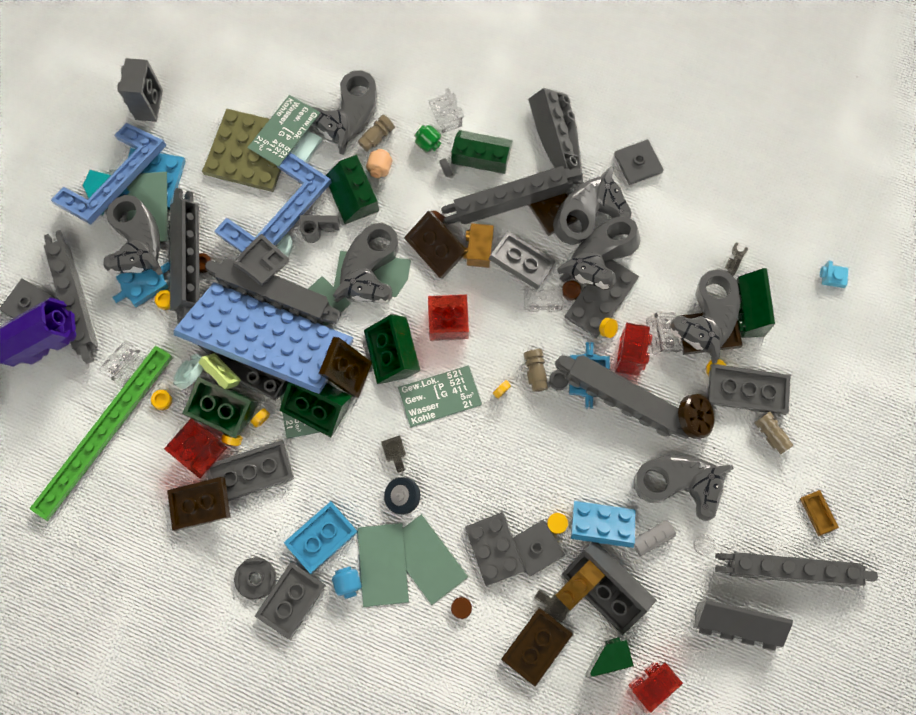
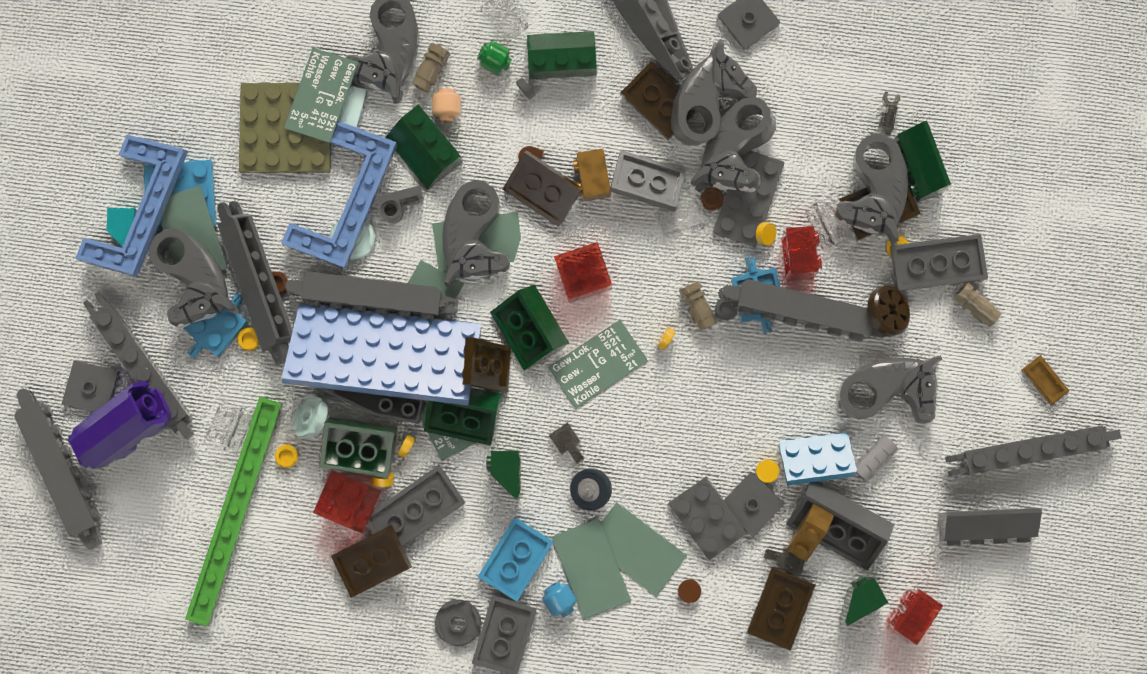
camera: 15 degrees left, 10 degrees up
(140, 89) = (134, 92): dark grey brick -> none
(219, 371) = (346, 409): yellowish green plate -> none
(261, 260) = (349, 265): dark grey plate -> none
(336, 458) = (506, 470): none -> dark green slope
(511, 195) = (614, 106): dark grey hinge -> none
(834, 275) = (1004, 99): medium azure bracket -> none

